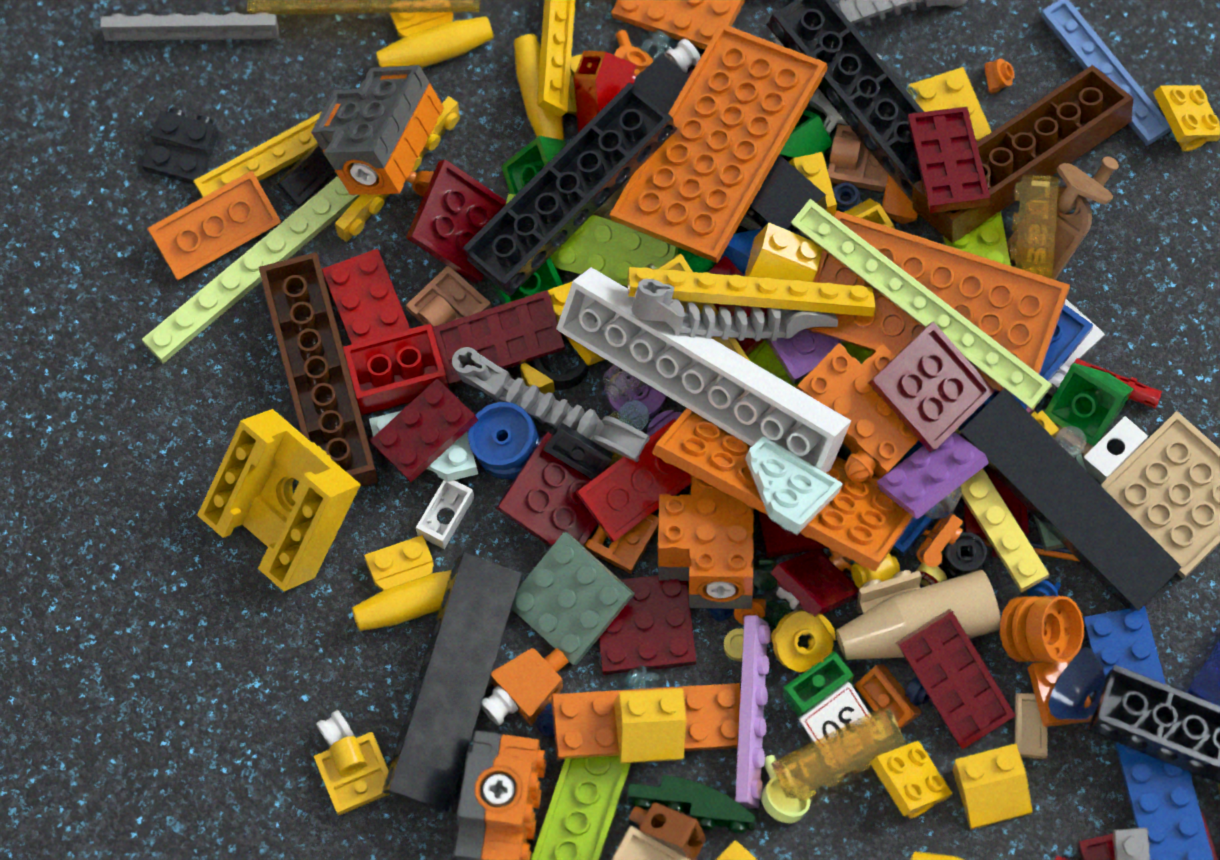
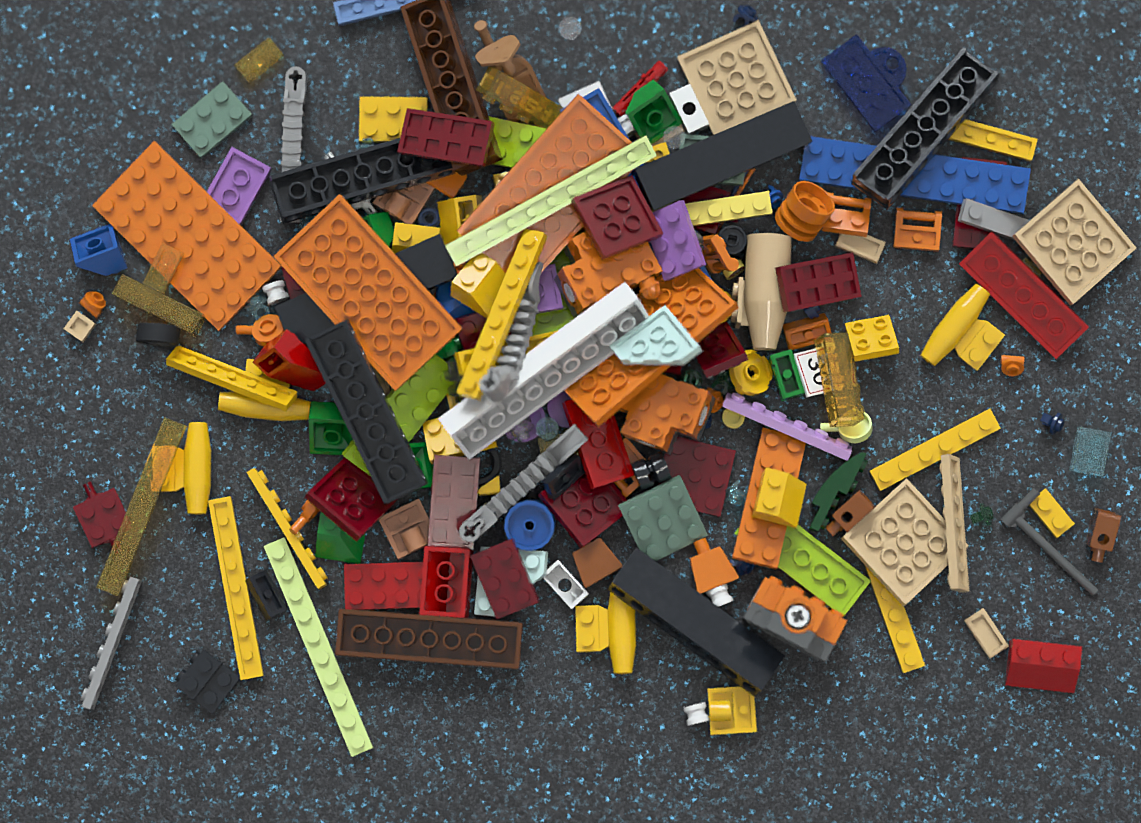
camera: 70 degrees left, 15 degrees up
(214, 225) = (283, 676): orange plate -> none
(257, 492) = (512, 708): yellow piece -> none
(378, 129) = (264, 532): dark grey piece -> none
(393, 228) = (336, 544): none -> green slope
(486, 535) = (595, 562): none -> dark orange torso
(630, 561) = (651, 470): none -> black wheel
(992, 786) = (894, 286): yellow slope -> none
(998, 75) = (375, 74): orange plate -> none
(1071, 793) = (917, 236): none -> orange plate
(1075, 684) = (849, 204): dark blue piece -> none
(1155, 275) = (570, 28): none -> clear plate

